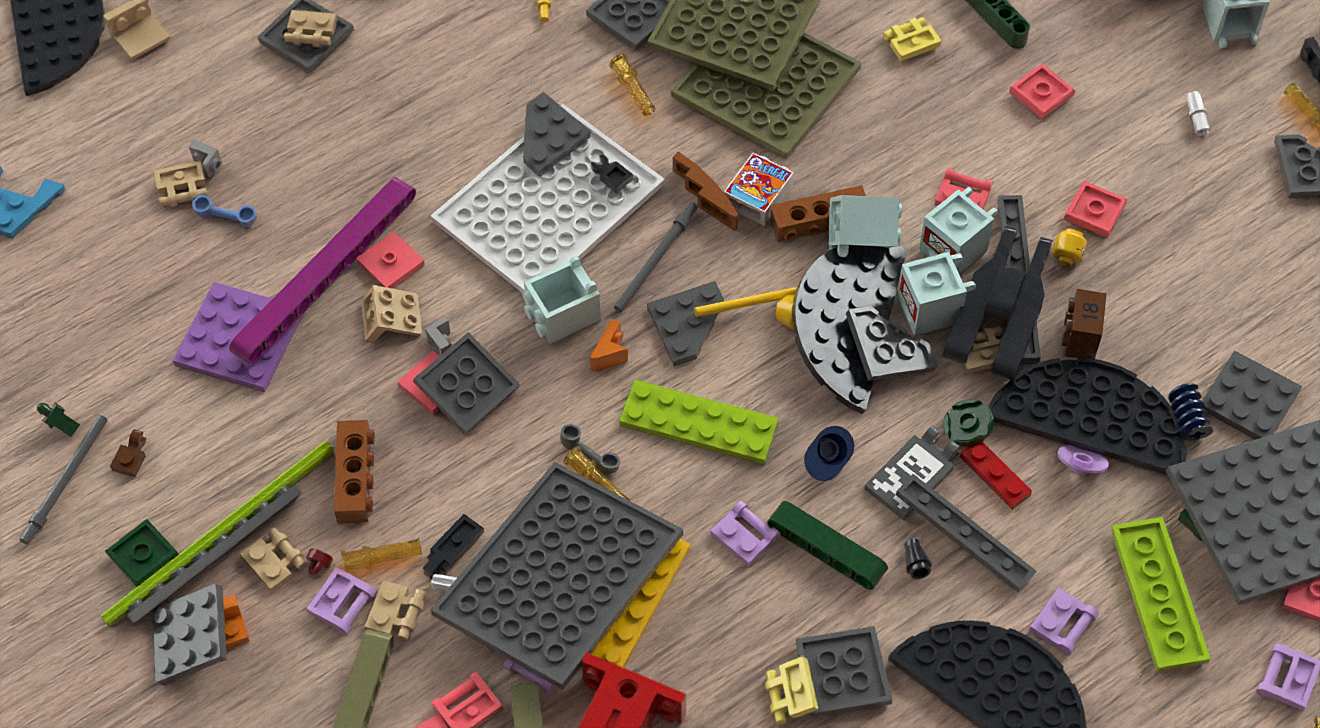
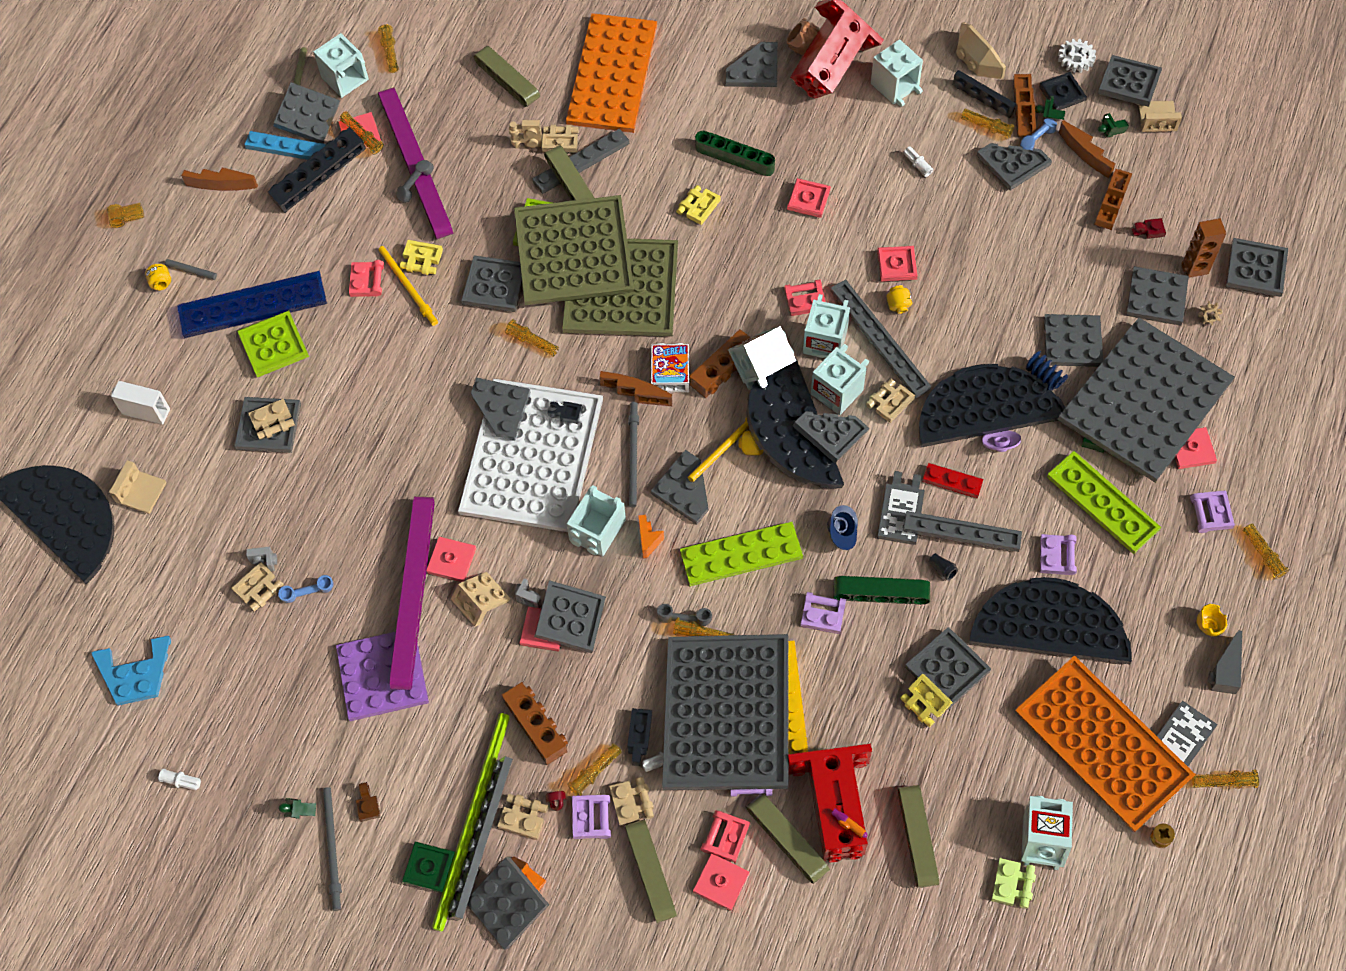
camera: 30 degrees left, 5 degrees up
(968, 422) = (915, 455): dark green tile -> none
(996, 293) = (894, 357): black beam -> none
(1084, 324) = (946, 348): reddish brown brick -> none

